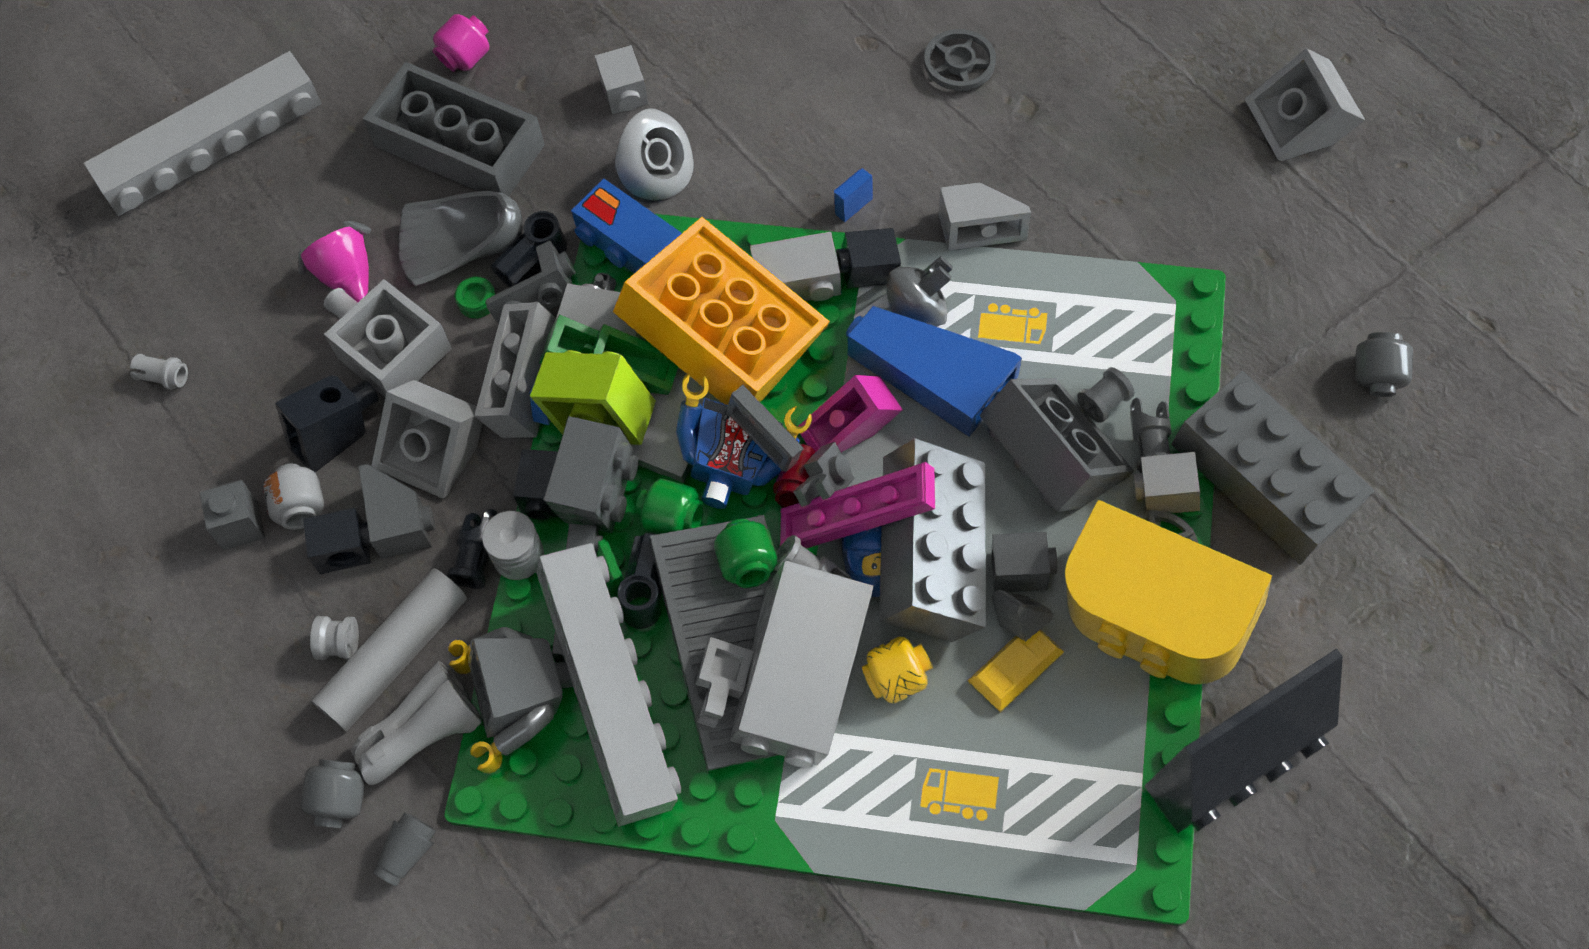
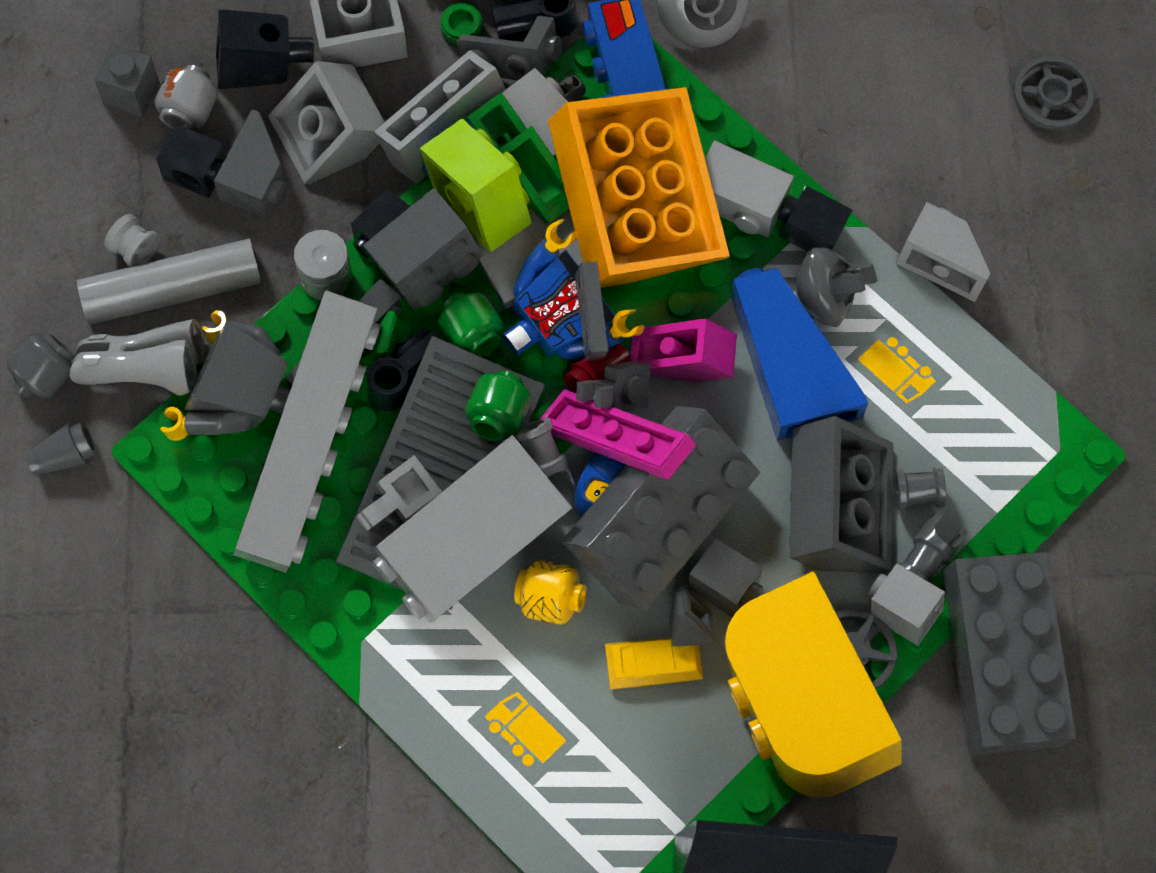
camera: 30 degrees right, 5 degrees up
(471, 554) = (280, 255): black piece -> none
(853, 194) = (851, 154): blue tile -> none

